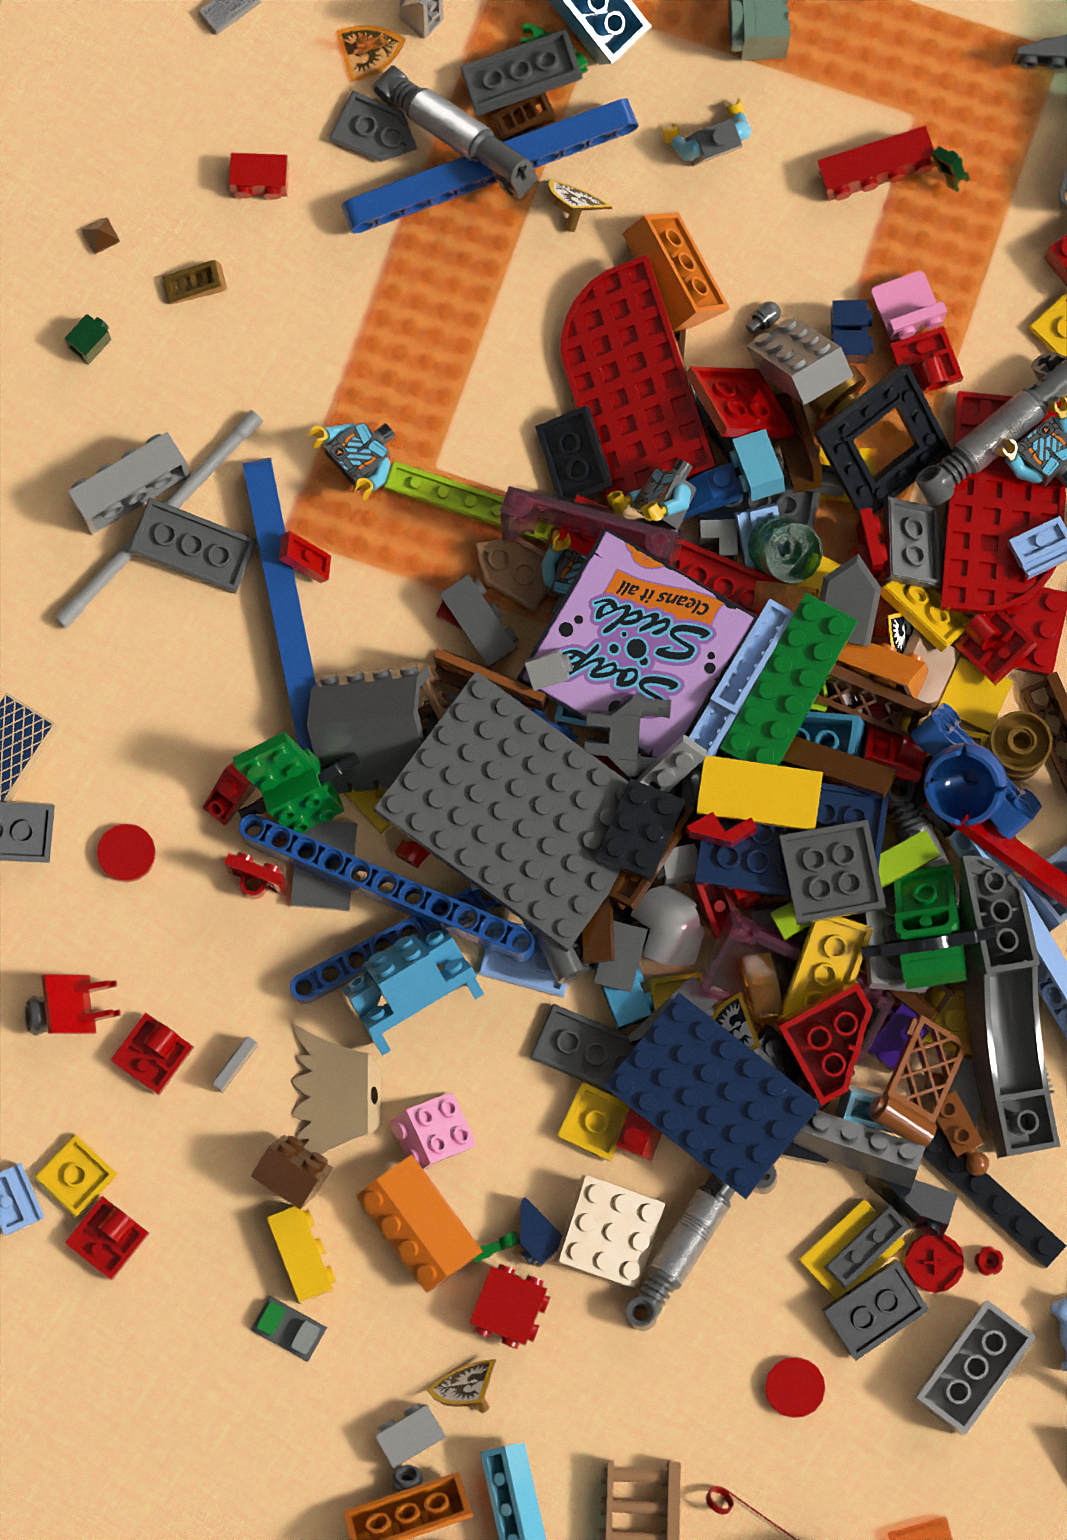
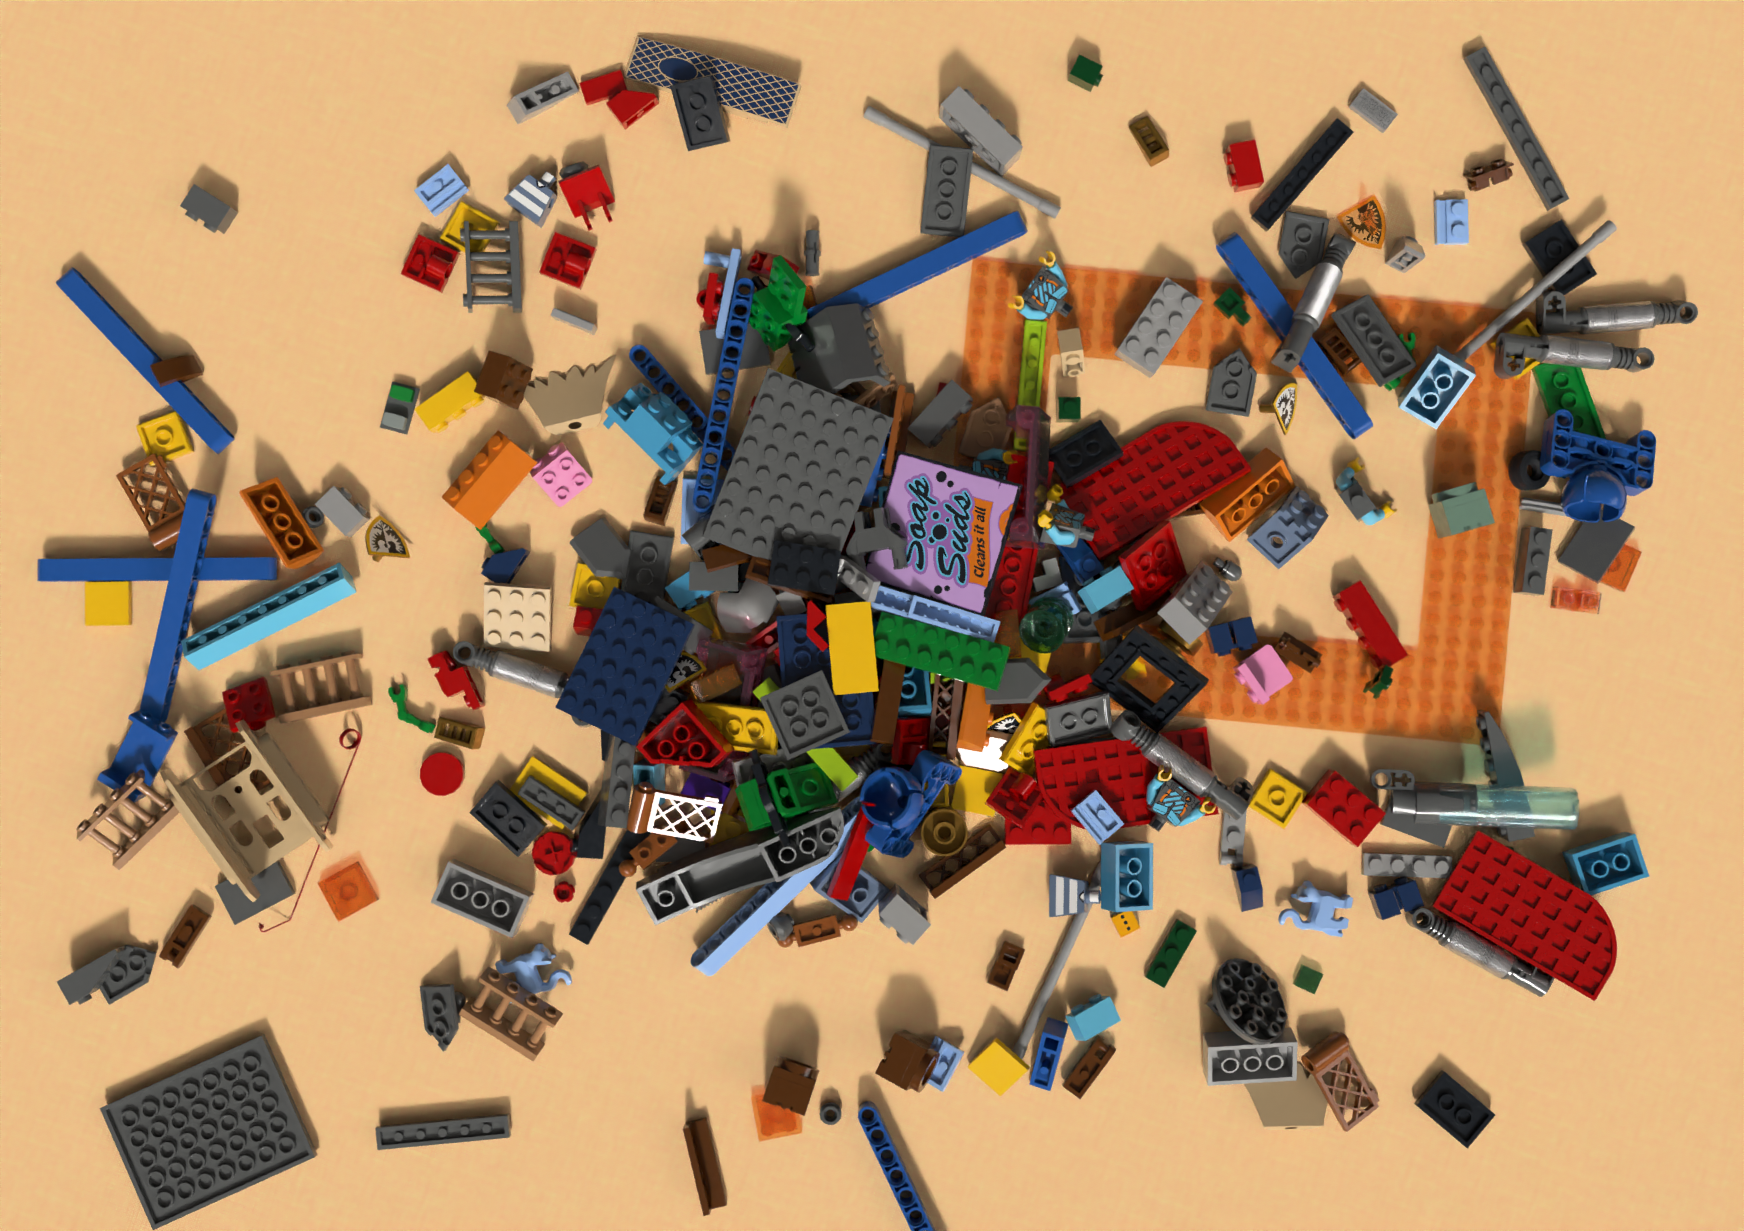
camera: 80 degrees right, 10 degrees up
(57, 1078) = (533, 198): none -> sand blue torso
(101, 235) = (1168, 62): reddish brown slope -> none
(126, 852) = (709, 204): red tile -> none
(127, 1125) = (510, 256): none -> dark grey fence
(215, 838) = (733, 263): none -> light blue piece
(226, 734) = (812, 253): none -> dark grey pin
(288, 109) = (1302, 174): none -> black plate
(305, 557) = (956, 274): red plate -> none
(432, 232) = (1230, 305): none -> dark green plate
(438, 325) = (1158, 327): none -> light grey brick
(441, 439) = (1071, 352): none -> tan slope
(509, 1307) = (447, 558): red brick -> none
(513, 462) = (1068, 409): none -> dark green brick
(520, 1024) = (654, 518): none -> reddish brown slope
(533, 256) = (1232, 386): none -> dark grey tile
(548, 669) = (908, 470): light grey brick -> none
(548, 1098) = (602, 550): none -> dark grey tile
(674, 1339) = (455, 681): none -> red plate
(701, 1420) = (403, 713): none -> green piece
(728, 220) = (1294, 522): none -> sand blue bracket
(757, 1328) = (473, 735): none -> pearl gold slope
(890, 257) = (1298, 652): none -> reddish brown hinge
(929, 359) = (1223, 698): red plate -> none

